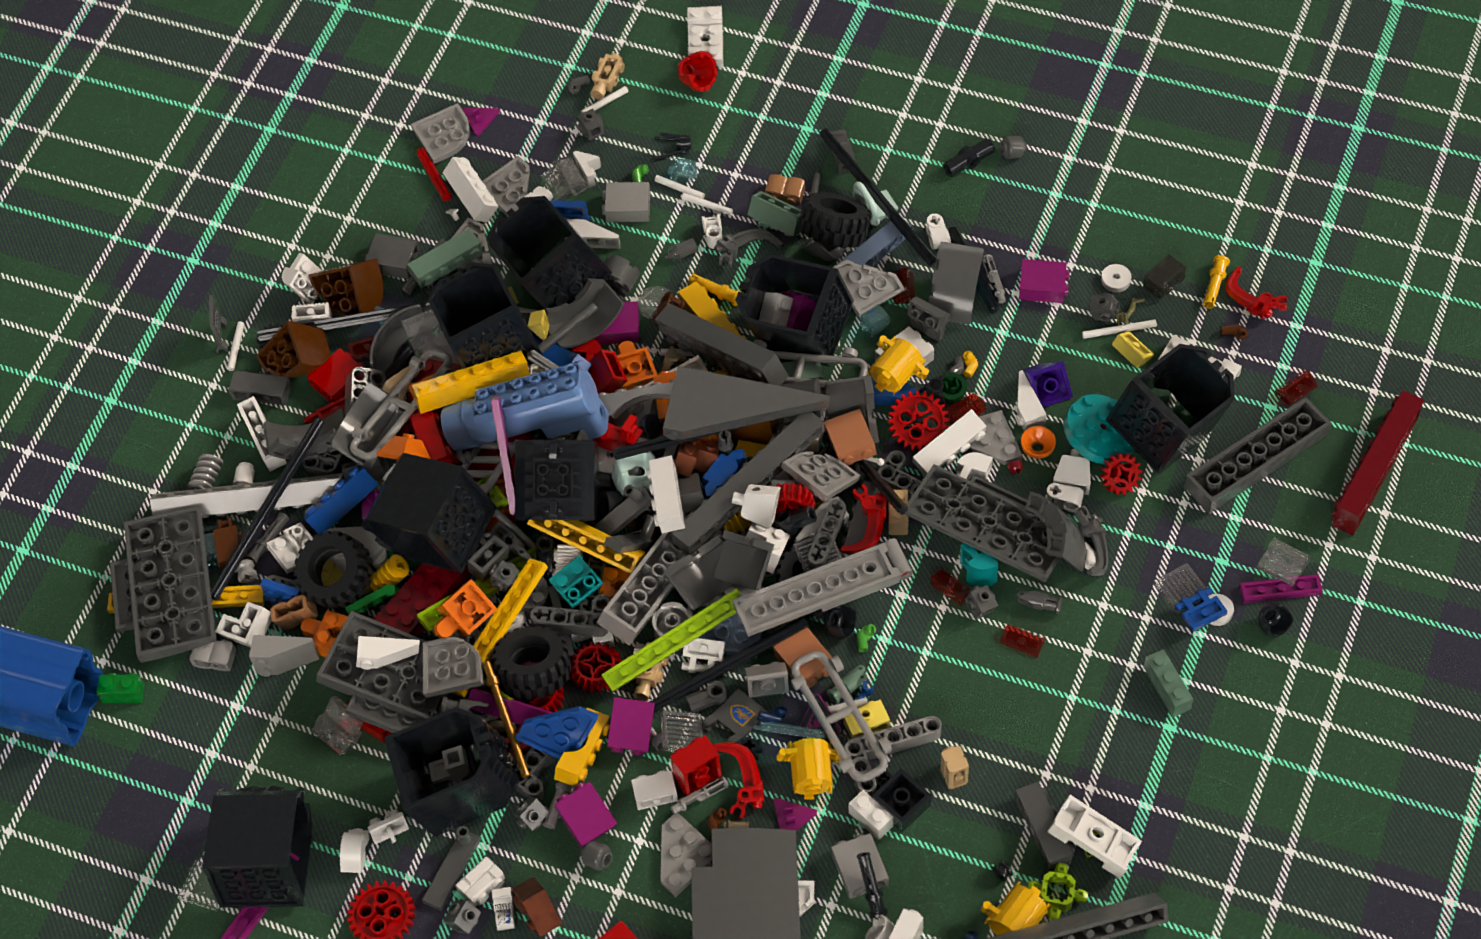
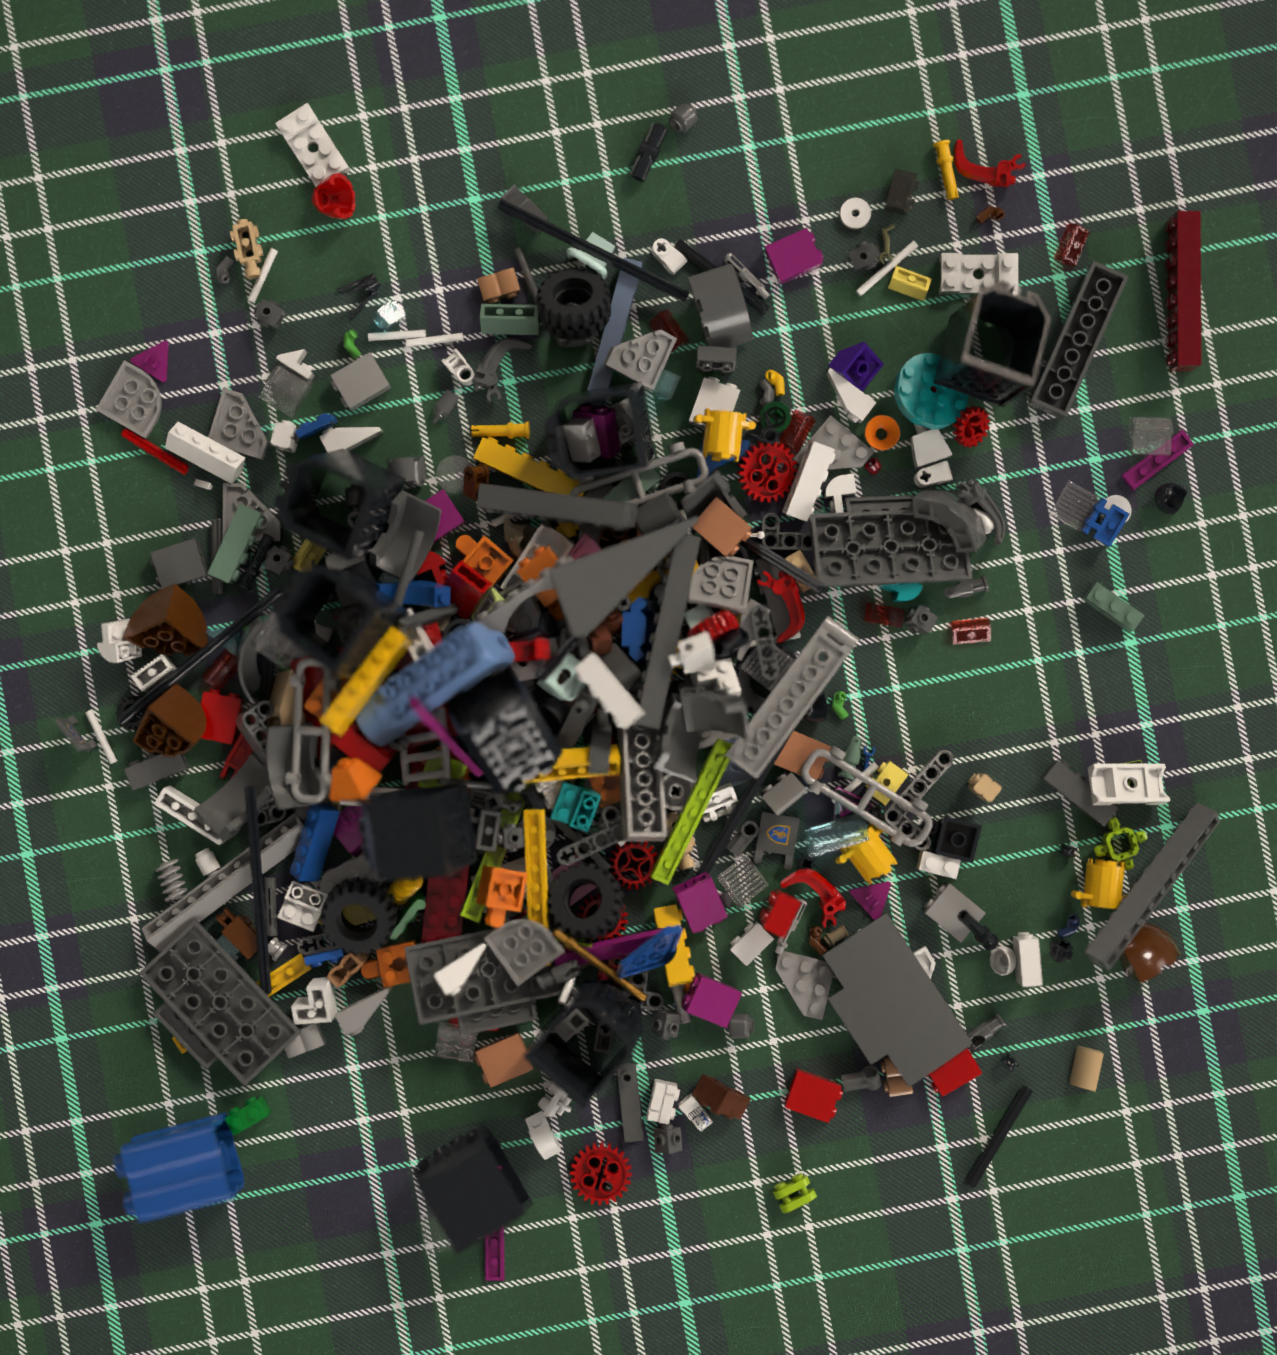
camera: 35 degrees left, 30 degrees up
(366, 767) = (503, 1059): none -> nougat brick
(539, 323) = (378, 575): light yellow slope -> none
(774, 716) = (807, 821): dark blue arm -> none

